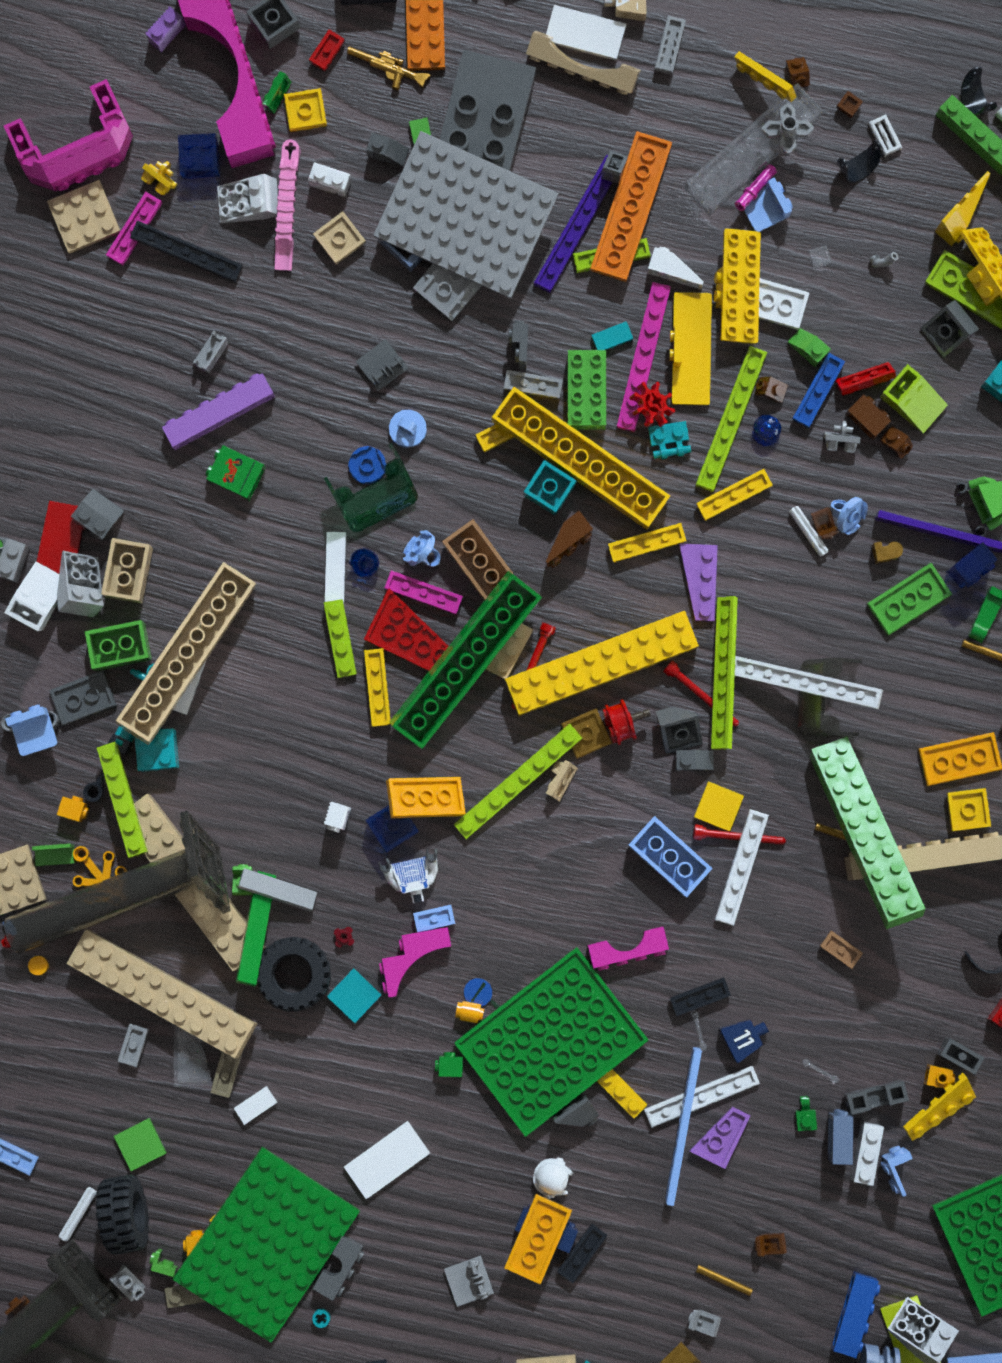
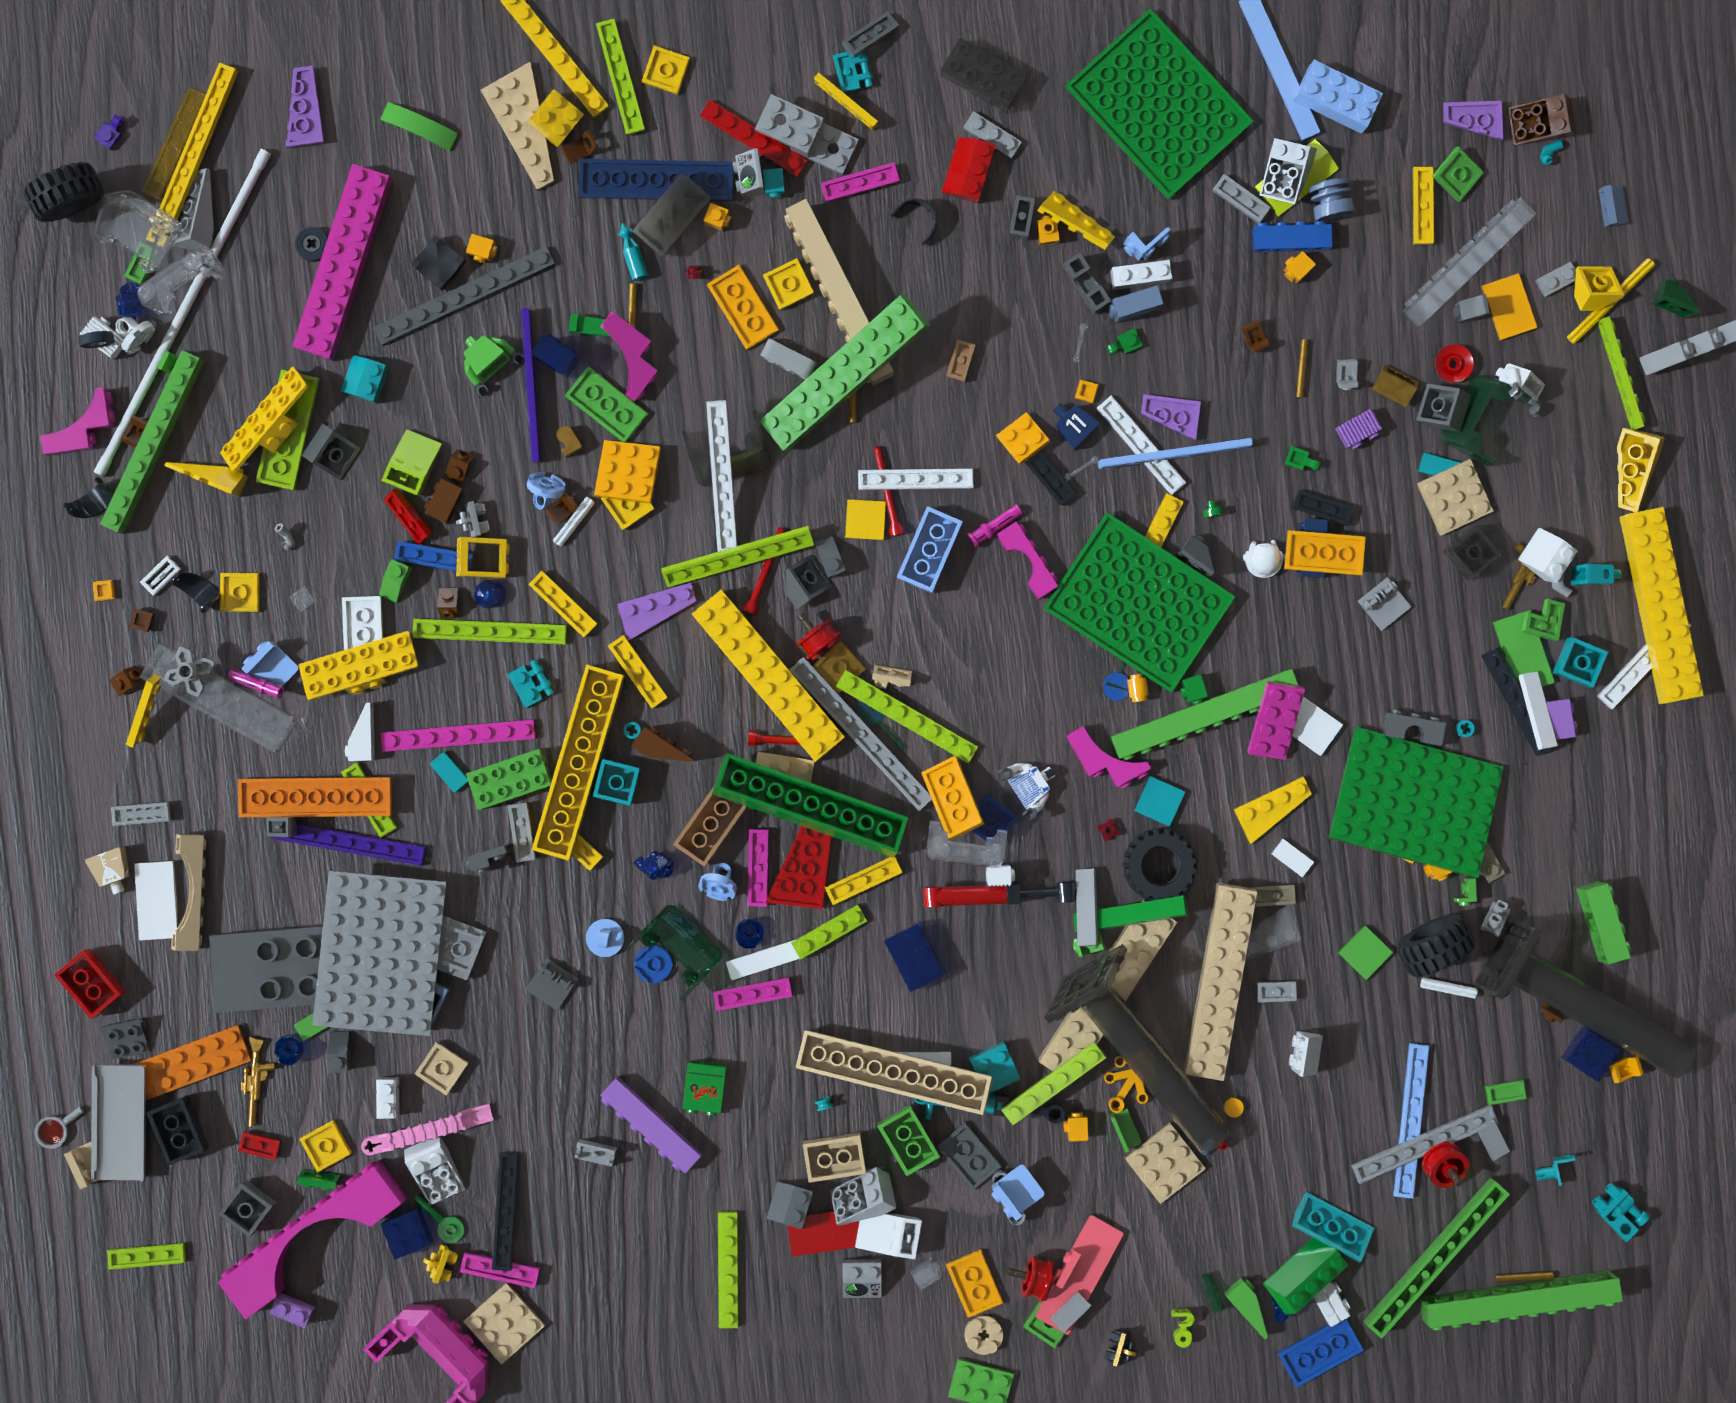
camera: 115 degrees left, 5 degrees up
(58, 437) = (728, 1269): none -> lime plate
(63, 1052) = (1306, 1053): none -> white slope
(180, 579) = (824, 1103): none -> teal bush
(189, 197) = (449, 1228): none -> green piece
(288, 710) = (914, 957): none -> clear blue brick
(307, 547) = (752, 994): none -> dark pink plate
(309, 1097) = (1265, 811): none -> yellow wing
(323, 796) = (993, 894): none -> red piece
(359, 809) = (963, 853): none -> clear windscreen
(392, 1134) = (1276, 720): none -> dark pink plate
(405, 105) = (289, 1050): none -> clear blue hair
(422, 1068) = (1195, 717): none -> bright green brick
(434, 918) = (1062, 751): light blue plate -> none
(458, 497) = (656, 865): none -> clear blue head
(516, 732) = (861, 733): none -> light grey plate
(528, 748) = (872, 717): none -> clear green piece
(591, 513) = (627, 733): none -> teal bush
(615, 1144) = (1212, 510): none -> green tile
(637, 1245) = (1299, 458): none -> green plate
(647, 1315) = (1359, 428): none -> medium lavender brick
(652, 404) = (502, 711): red gear -> none
(669, 918) = (987, 530): none -> dark pink pin
(691, 348) = (434, 692): yellow bracket -> none
(746, 984) = (1023, 438): none -> light orange plate
(771, 1061) = (1086, 391): none -> light orange tile
(808, 414) = (462, 557): none -> yellow window
(809, 587) = (627, 512): none -> yellow plate
(824, 1310) = (1298, 267): none -> light orange brick
(839, 596) = (627, 471): none -> light orange plate
(845, 202) = (240, 592): none -> yellow tile
(888, 80) = (104, 590): none -> light orange tile
(896, 784) = (788, 359): none -> light grey beam
(909, 1277) = (1241, 198): none -> light grey plate
(958, 641) = (632, 345): none -> dark pink arch

